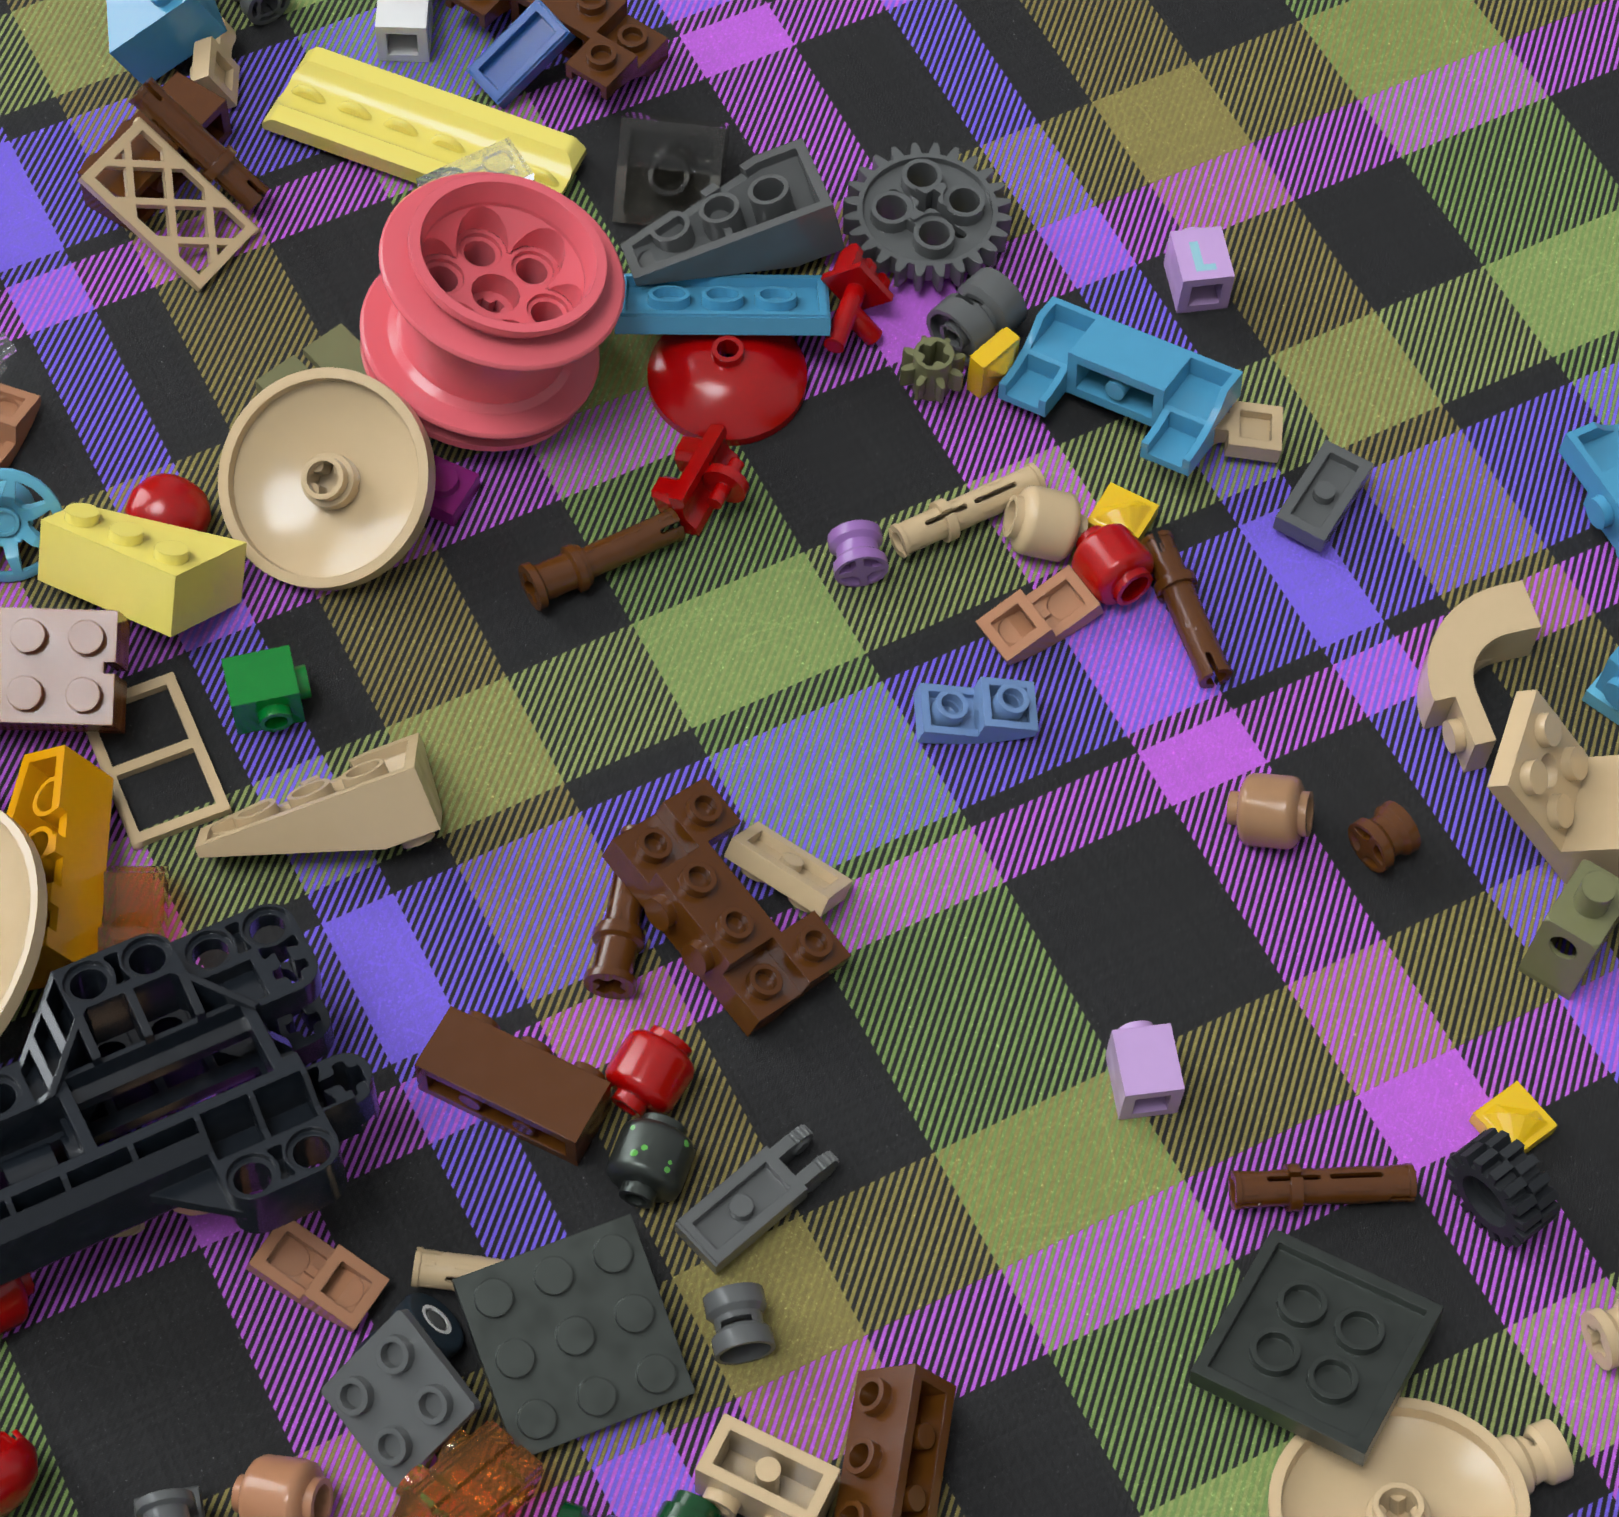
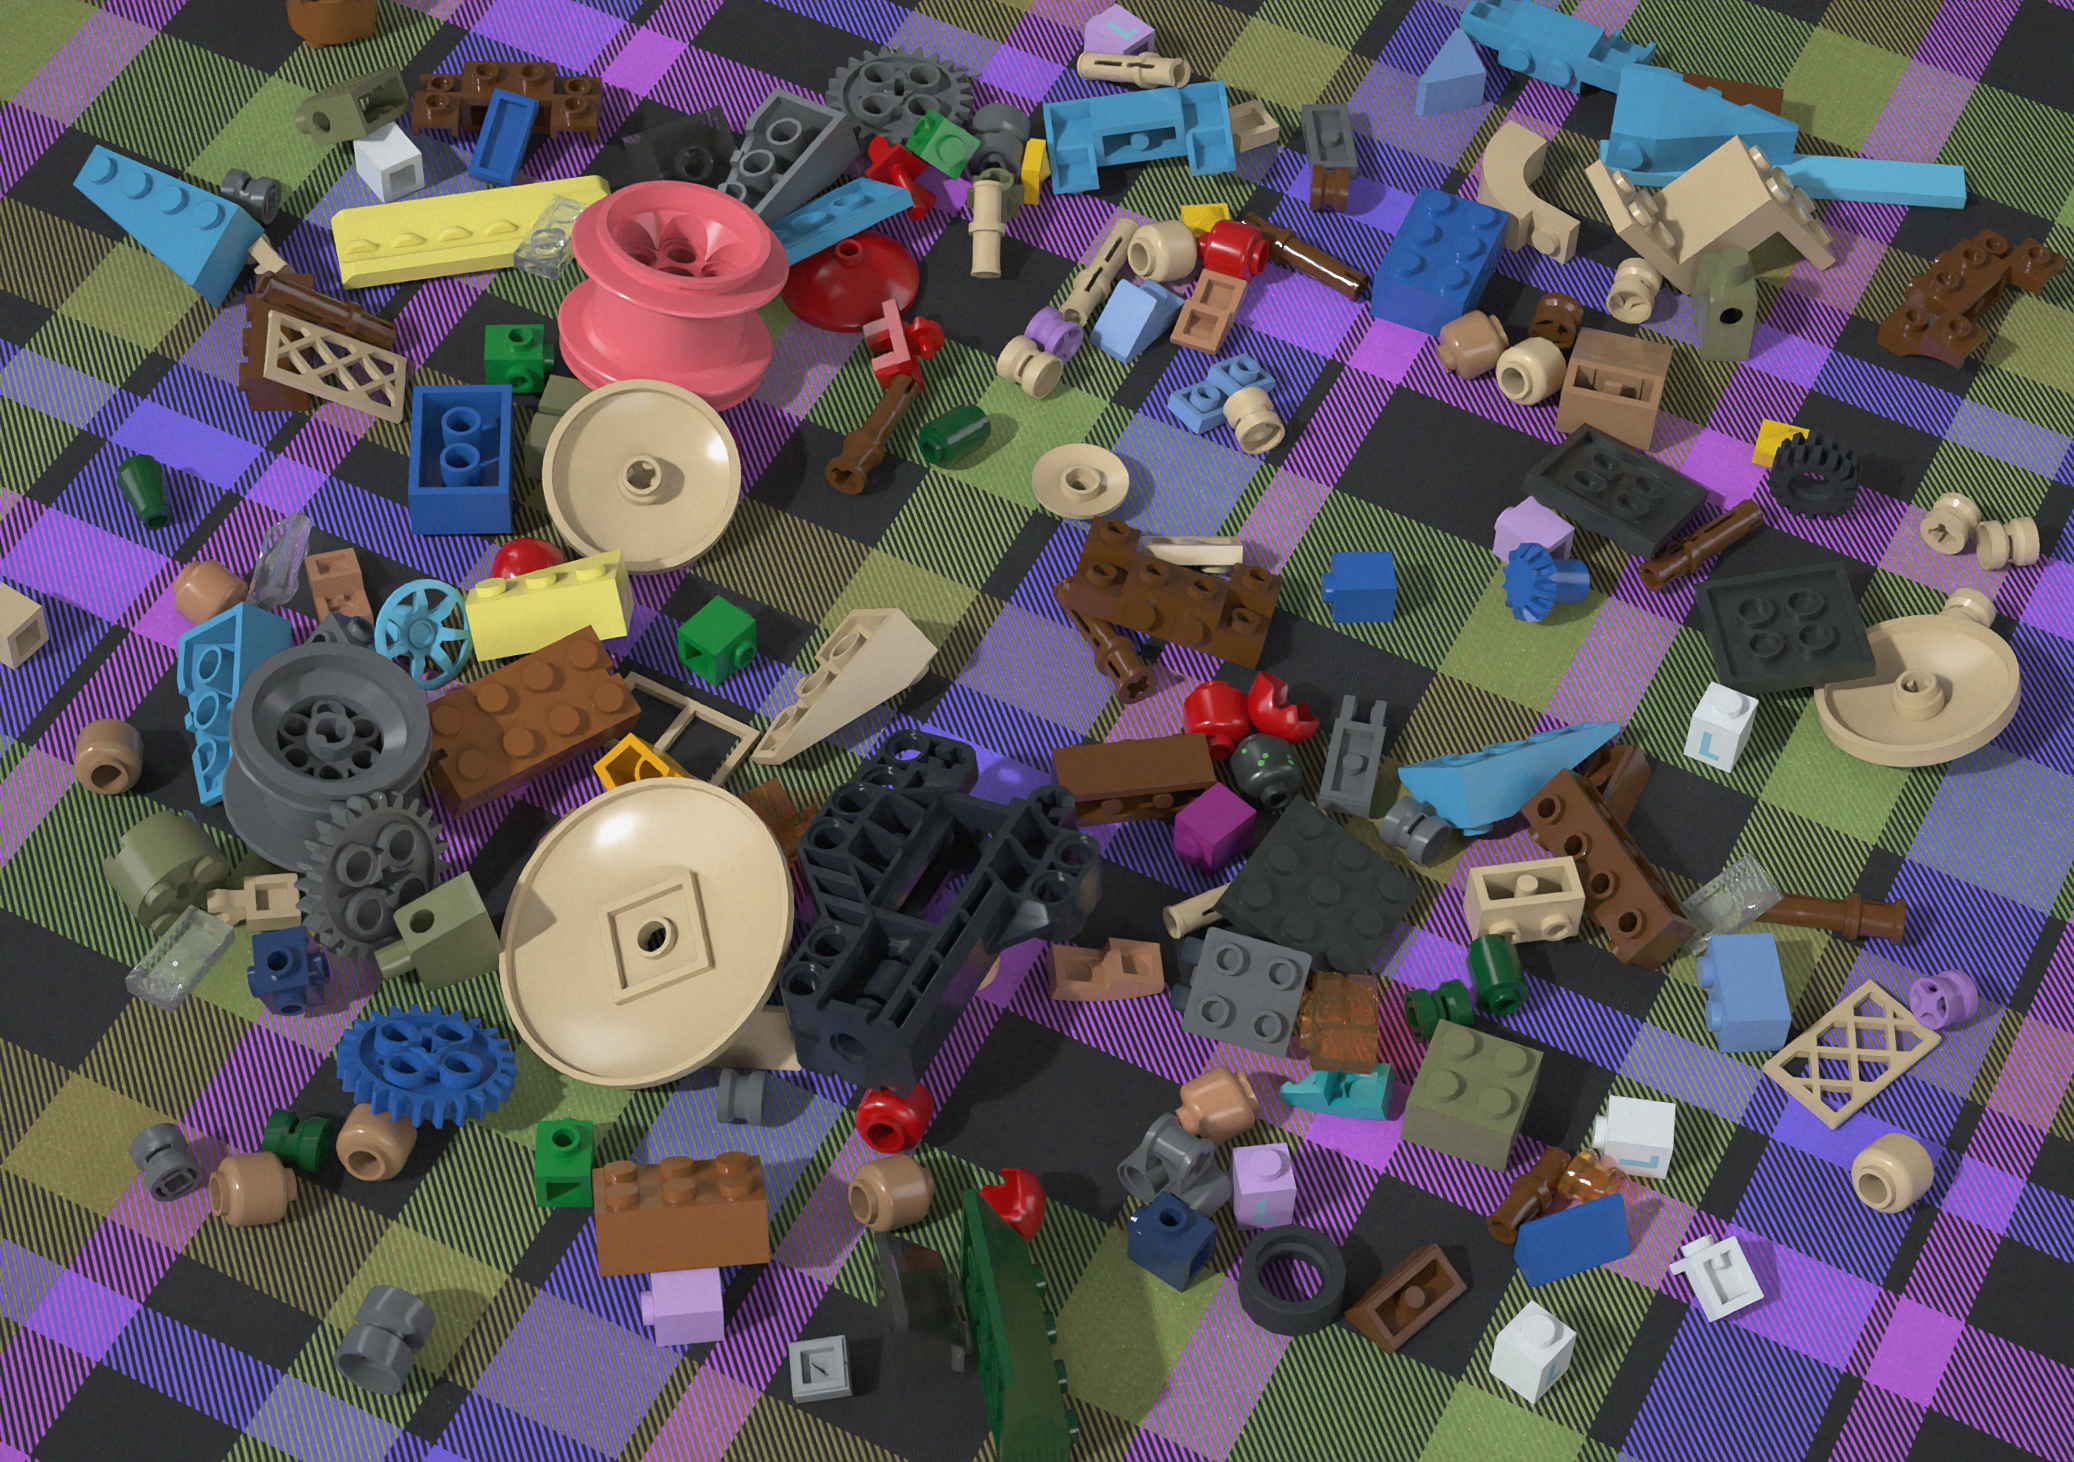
camera: 35 degrees left, 10 degrees down
(194, 364) = (461, 459): none -> blue brick
(332, 285) = (518, 357): none -> green brick
(542, 1191) = (1214, 829): none -> magenta brick
(671, 604) = (954, 435): none -> dark green brick
(715, 1101) = (1273, 714): none -> red hair
(751, 707) = (1080, 481): none -> tan dish
(806, 578) = (1033, 369): none -> tan wheel
(860, 1320) = (1496, 783): none -> dark azure wedge
(884, 401) = (987, 229): none -> tan pin
(913, 284) = (942, 143): none -> green brick
(921, 1012) = (1360, 587): none -> blue brick
(960, 582) = (1135, 319): none -> medium blue slope
(975, 762) = (1254, 421): none -> tan wheel
(996, 1401) = (1619, 776): none -> reddish brown slope
(1107, 1127) = (1539, 582): none -> blue gear
(1153, 1413) = (1720, 727): none -> white brick
(1178, 312) = (1145, 70): none -> tan pin
(1268, 1072) = (1615, 491): none -> pearl dark grey plate
(1275, 548) = (1329, 188): none -> reddish brown wheel
(1308, 877) = (1531, 371): none -> tan head
(1316, 697) = (1438, 261): none -> blue brick
(1384, 944) = (1614, 386): none -> medium nougat slope
(1495, 853) = (1634, 291): none -> tan wheel
(1510, 495) = (1452, 79): none -> medium blue slope

